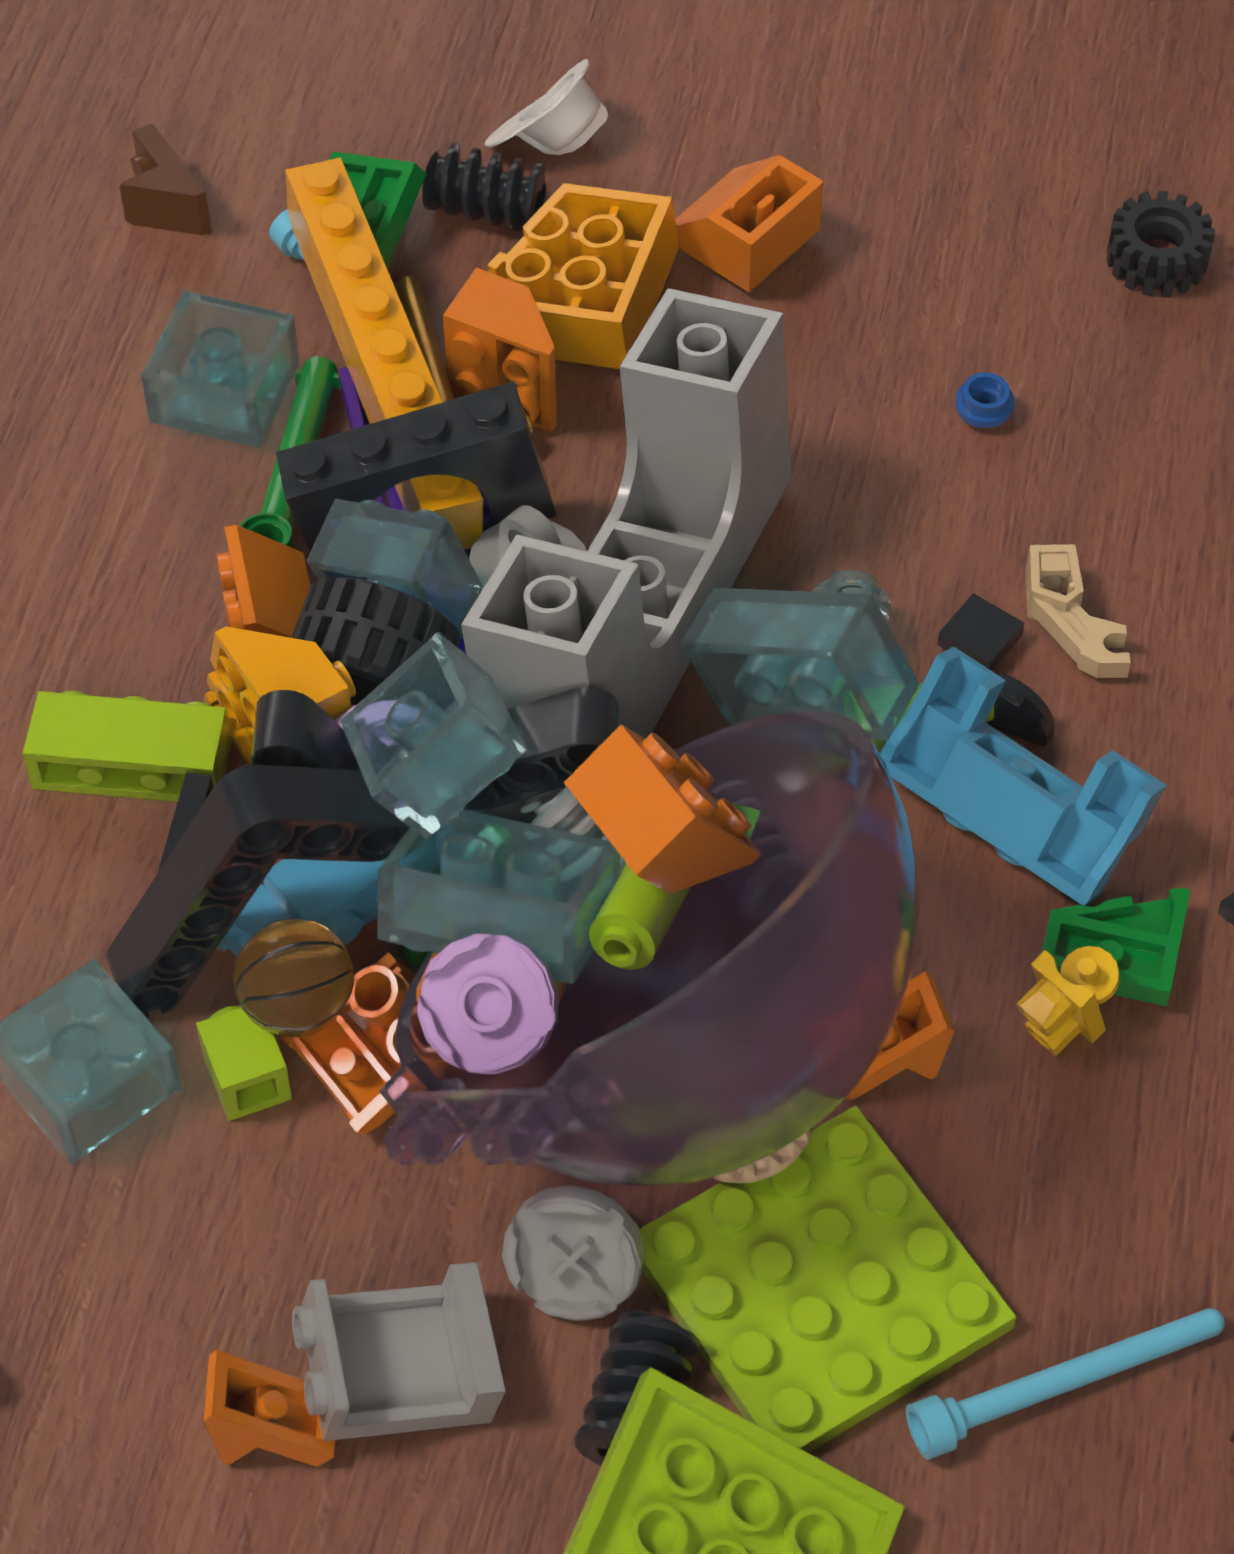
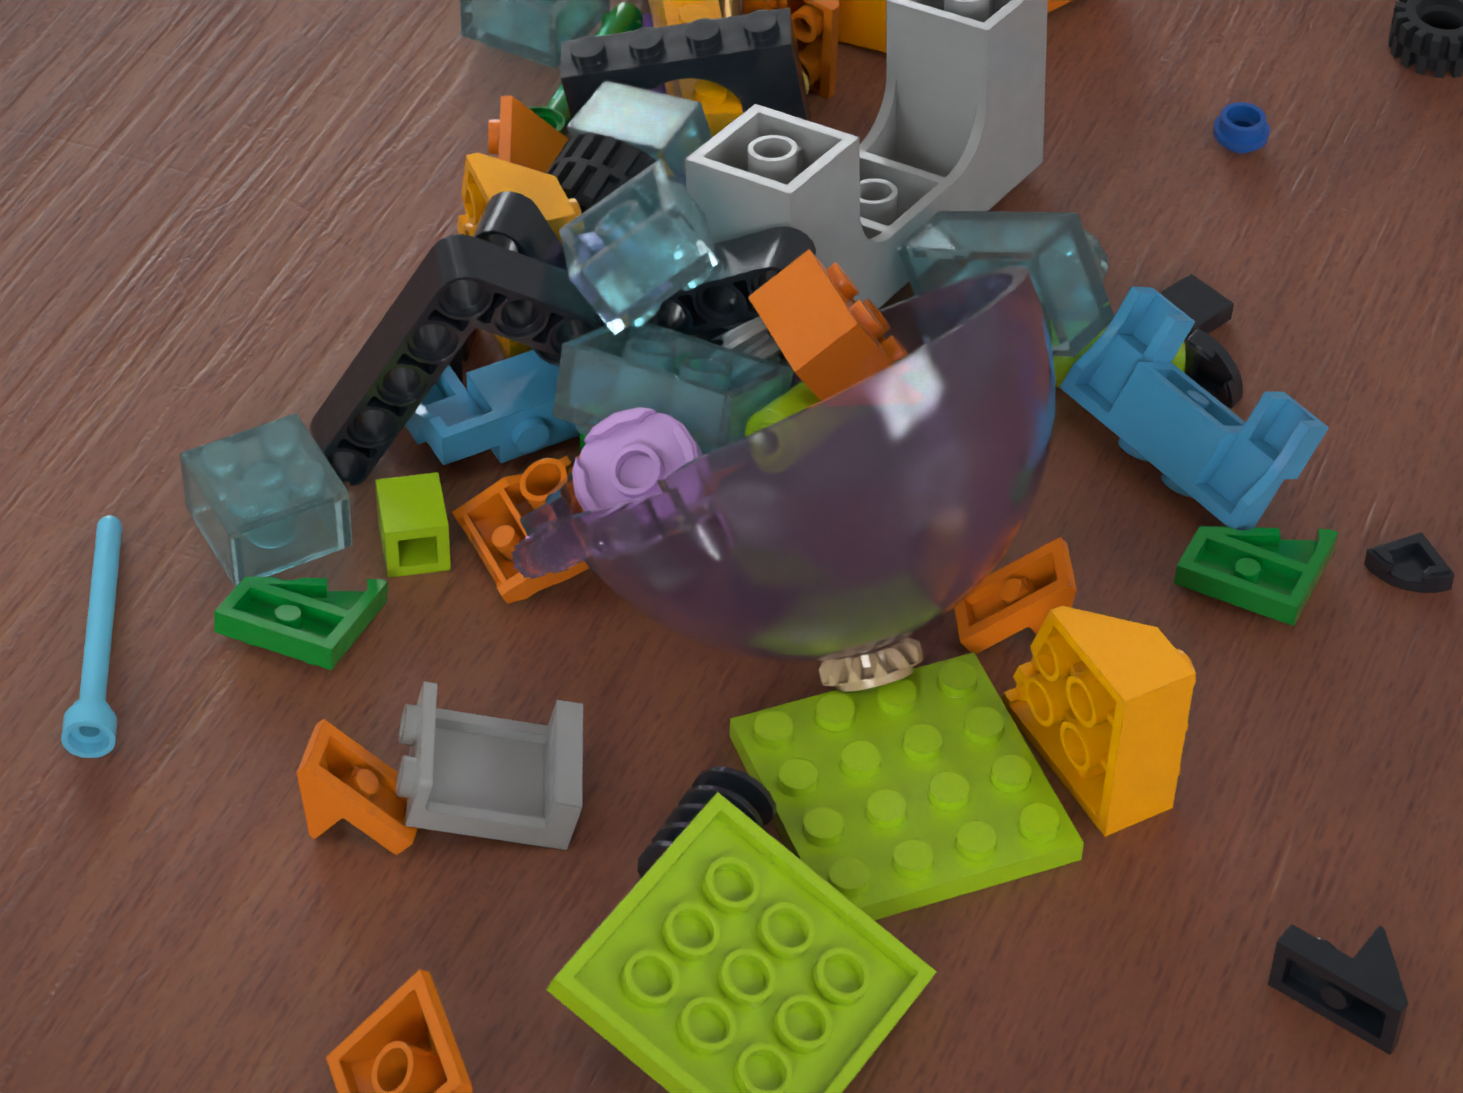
camera: 10 degrees right, 10 degrees down
(123, 745) = (347, 264): lime brick -> none
(150, 1197) = (299, 616): none -> green wing
(293, 977) = (471, 448): clear orange piece -> none
(573, 1252) = (675, 712): light grey tile -> none
(941, 1423) = (989, 915): medium azure piece -> none
(1016, 1177) = (1106, 712): none -> light orange wedge
(1068, 1001) = (1194, 592): yellow hips -> none
(1085, 638) = (1269, 295): tan piece -> none

